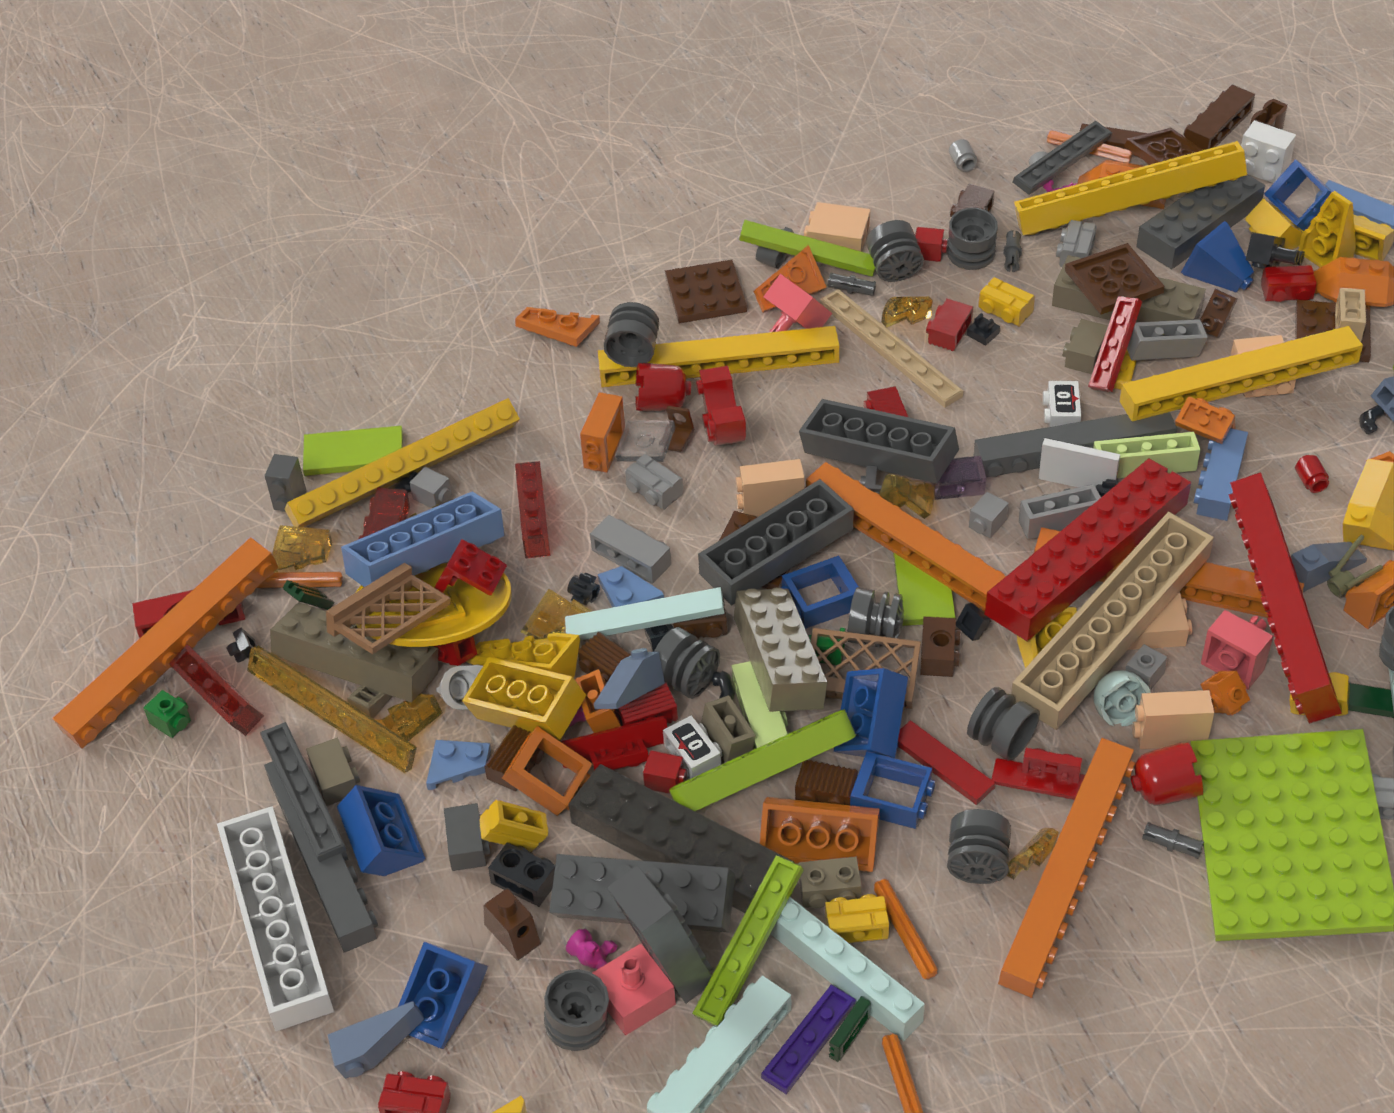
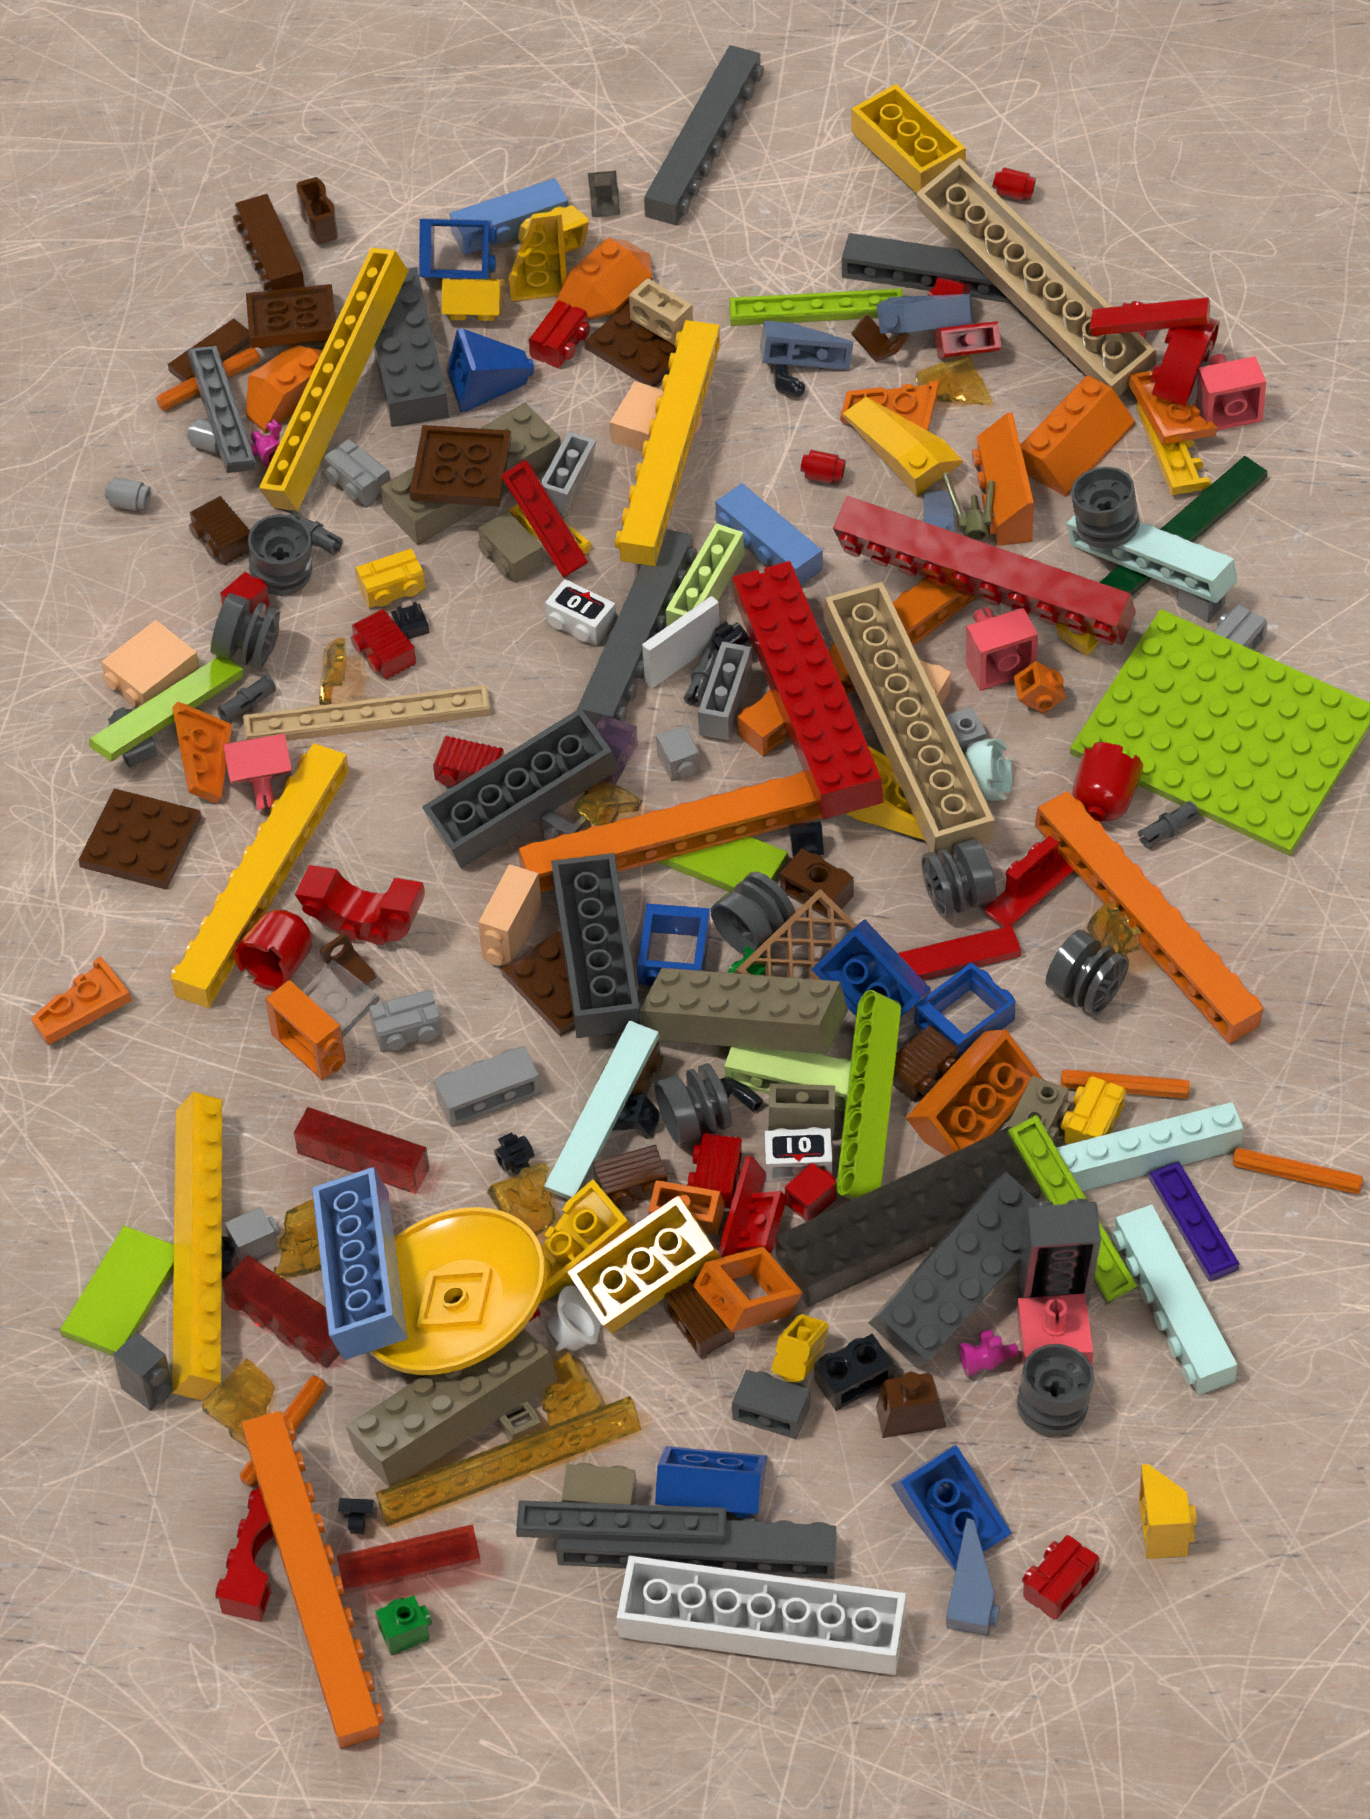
camera: 60 degrees left, 5 degrees up
(307, 595) = (336, 1416): dark green tile -> none
(374, 599) = (434, 1344): medium nougat fence -> none
(456, 761) = (659, 1374): medium blue wing -> none
(472, 567) = (430, 1235): red bracket -> none
(626, 588) = (539, 1118): medium blue wing -> none
(631, 334) = (199, 927): dark grey wheel -> none
(631, 679) = (700, 1156): sand blue slope -> none
(850, 1029) = (1210, 1180): dark green tile -> none
(1172, 718) = (1047, 743): light nougat brick -> none
(1205, 419) = (707, 505): orange bracket -> none
(1217, 312) = (558, 410): reddish brown hips -> none
(1267, 151) = (361, 229): white brick -> none
(1270, 250) = (516, 321): black brick -> none

